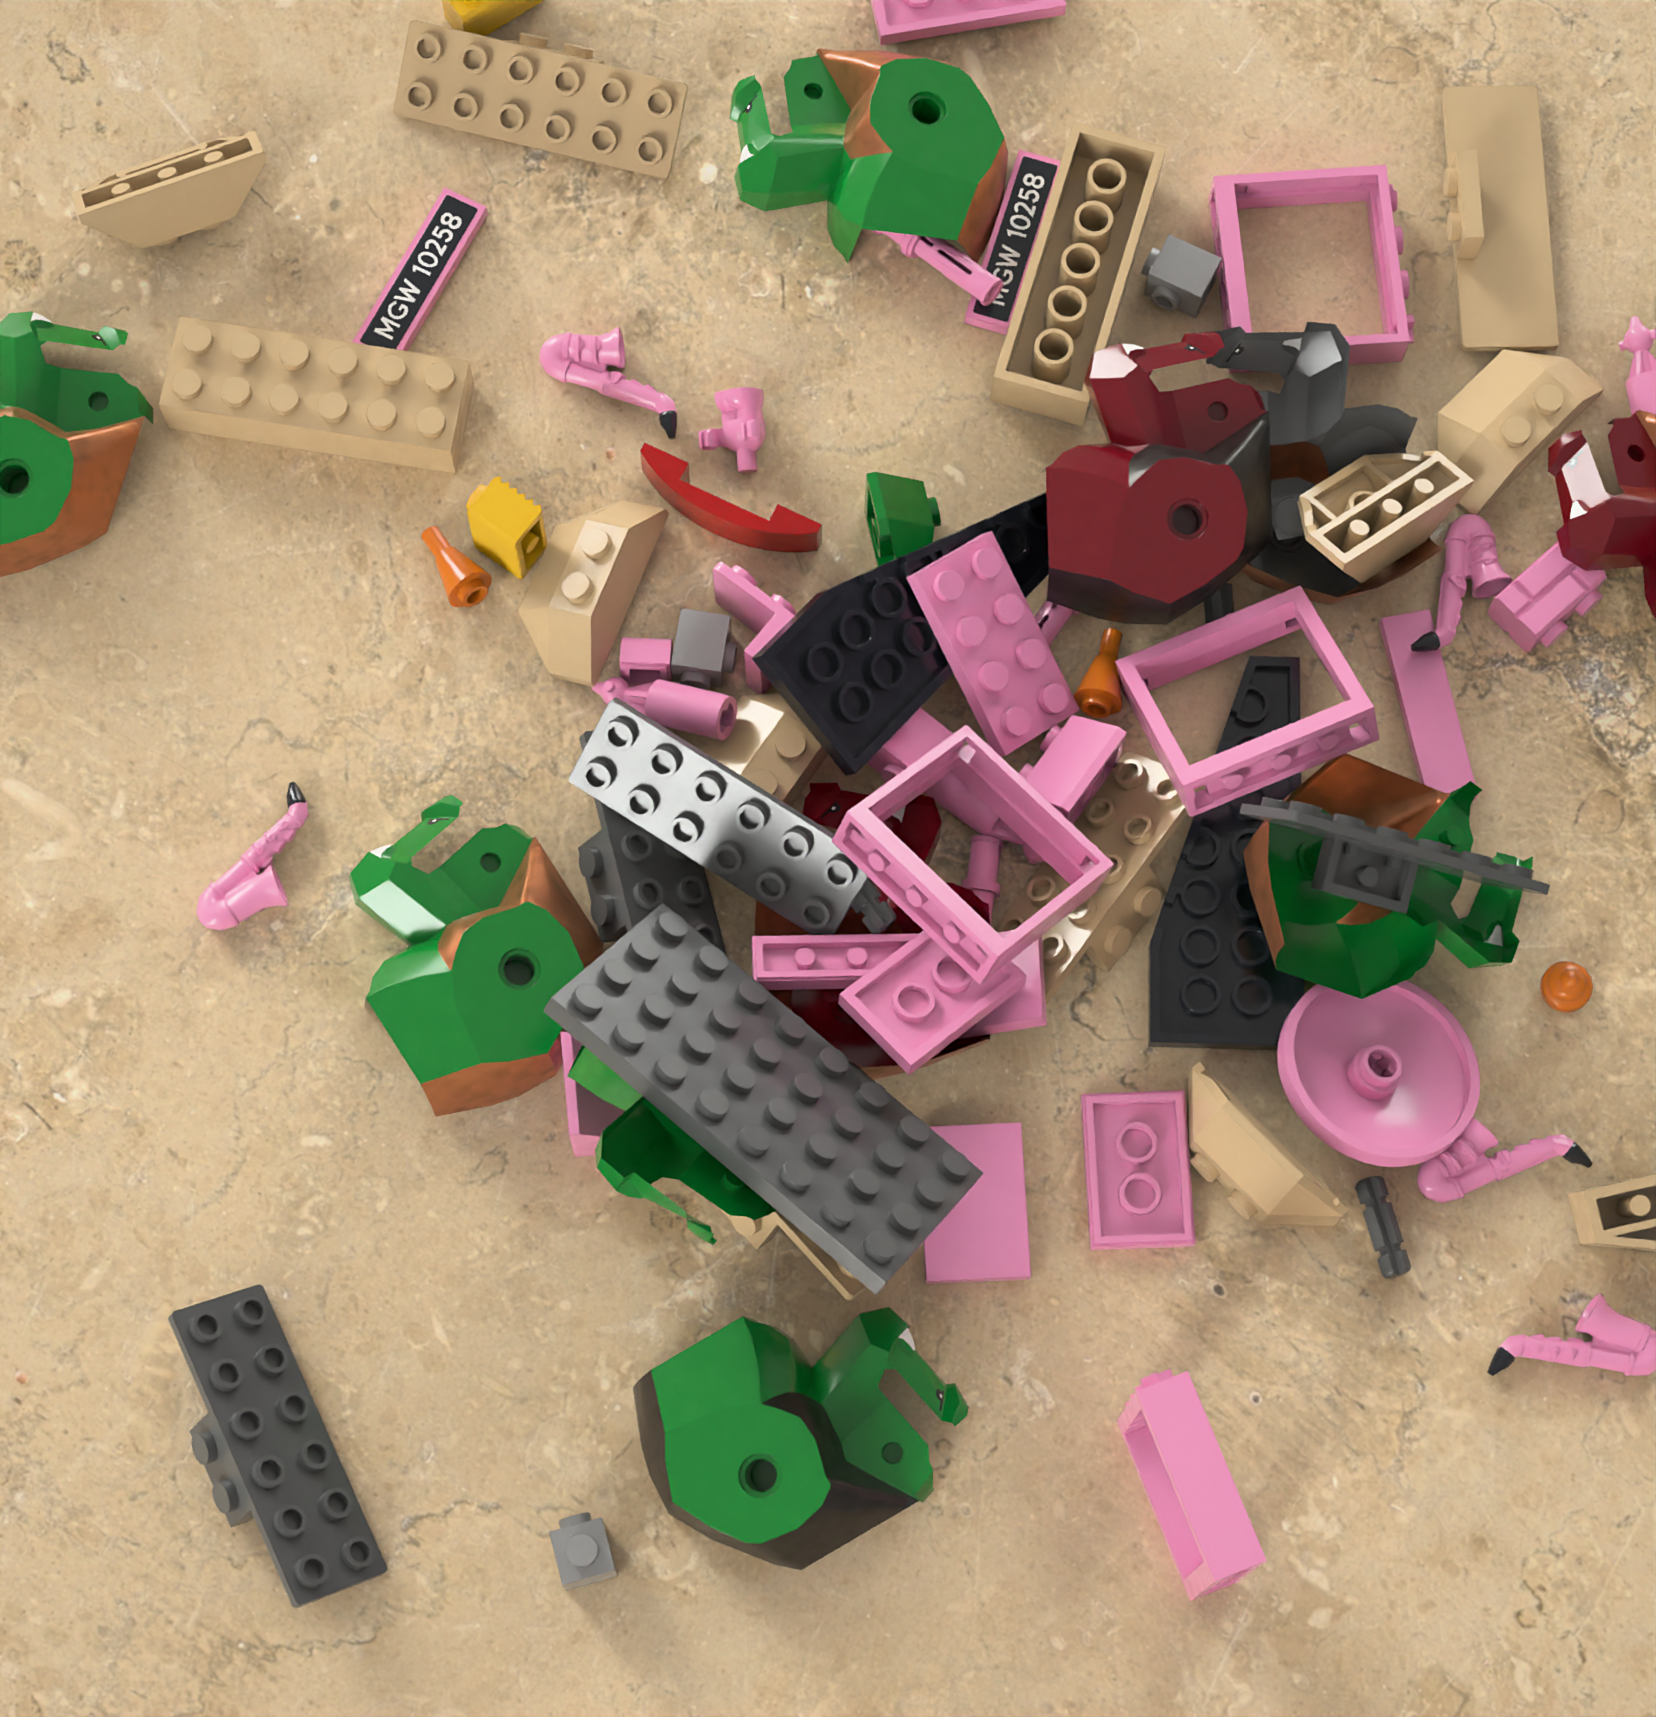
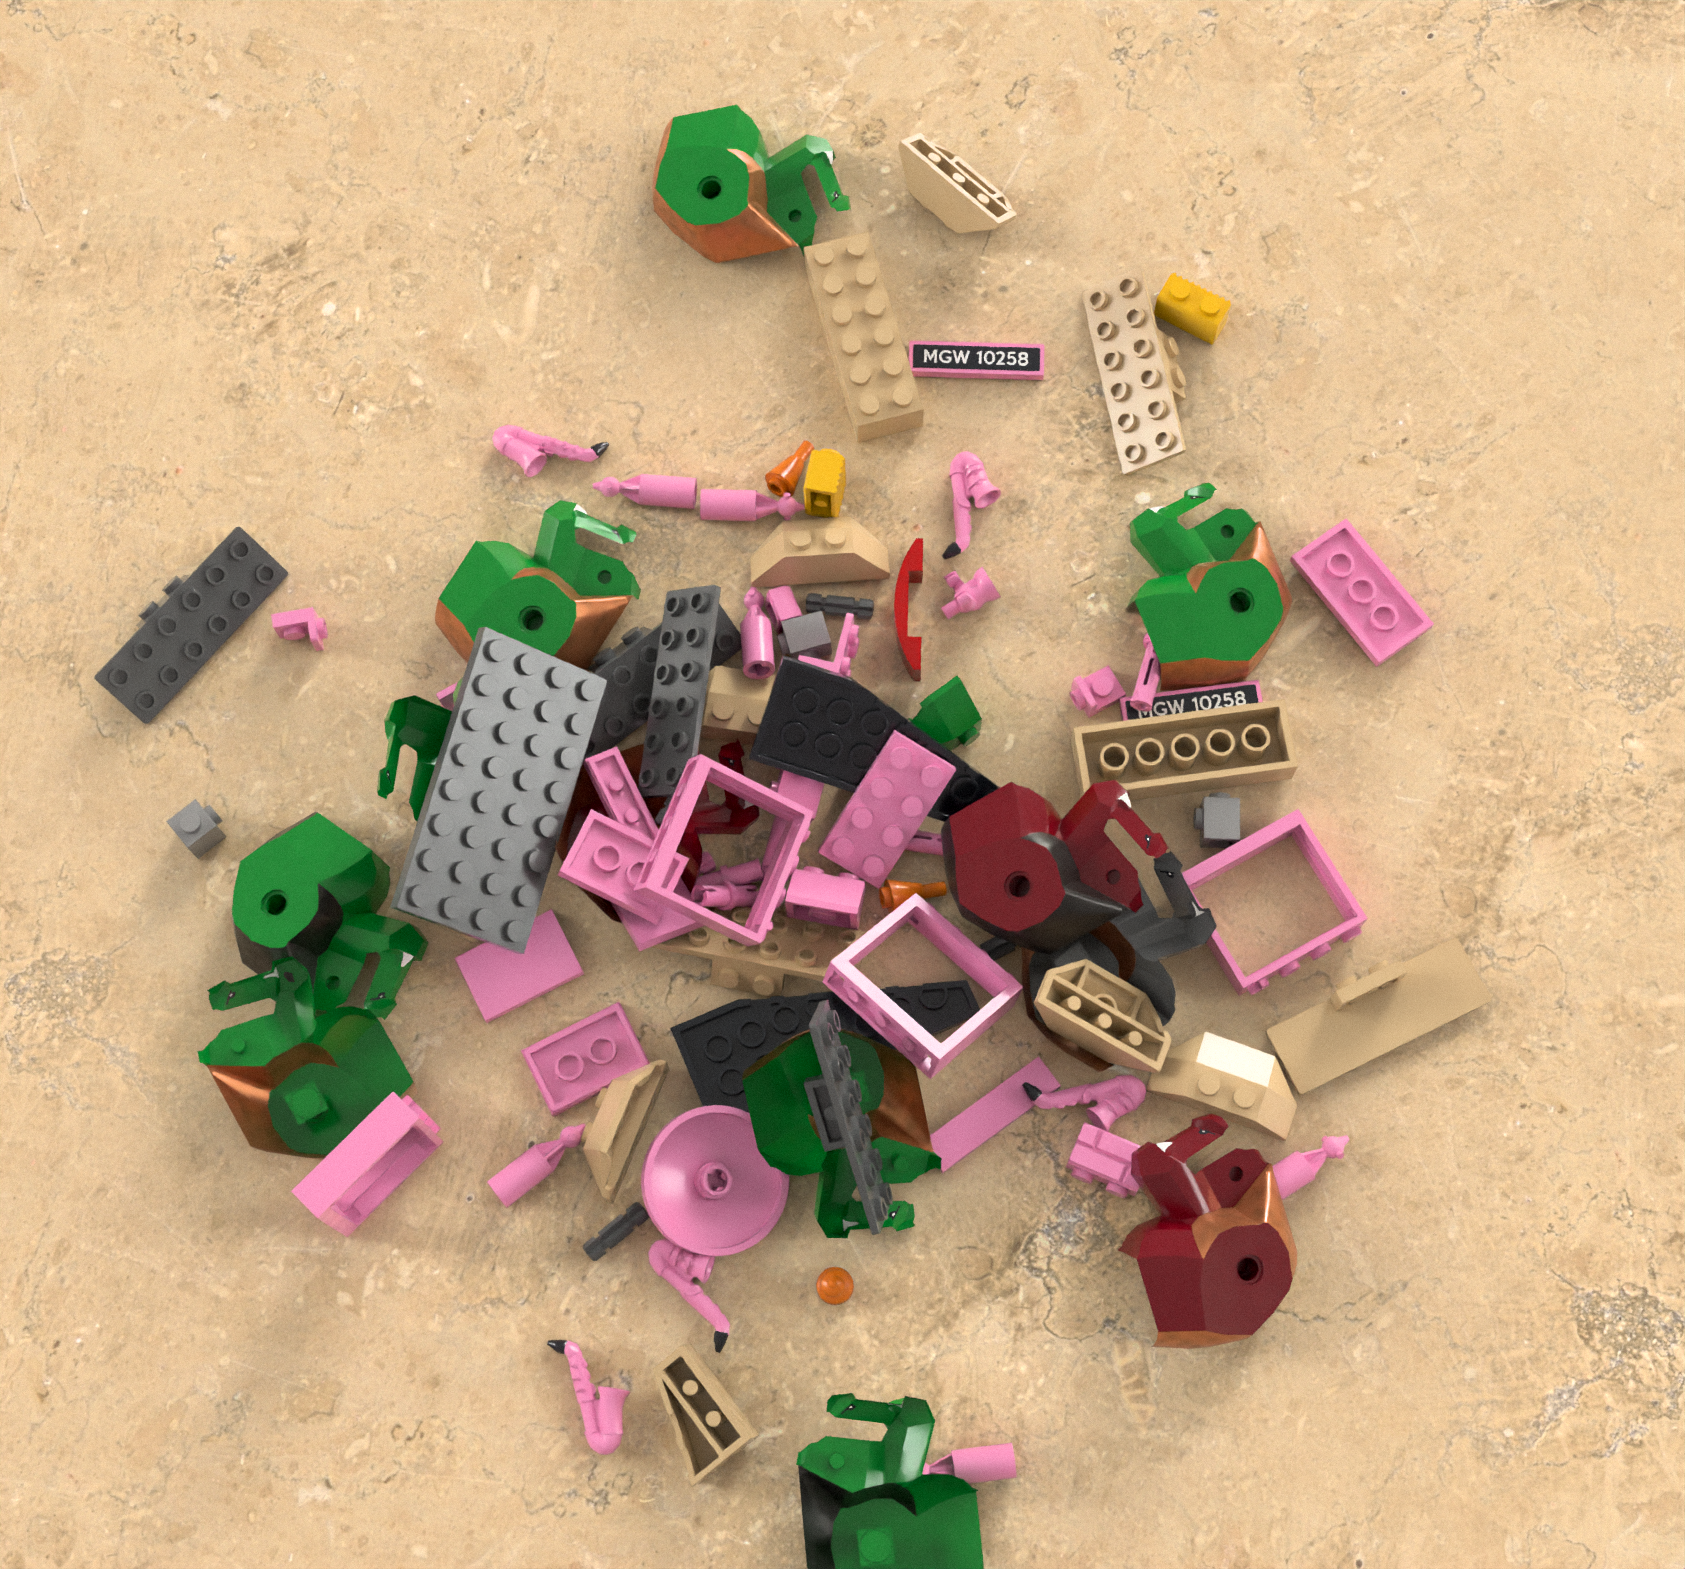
camera: 70 degrees right, 0 degrees up
(348, 1300) = (297, 623): none -> bright pink bracket
(394, 750) = (653, 490): none -> bright pink wheel
(475, 647) = (744, 505): none -> bright pink wheel
(675, 591) = (839, 605): none -> dark grey axle
(942, 340) = (1096, 691): none -> bright pink bracket
(1010, 894) = (724, 895): none -> bright pink pin
(1020, 1542) = (298, 1076): none -> green piece
(1255, 1294) = (533, 1166): none -> bright pink wheel

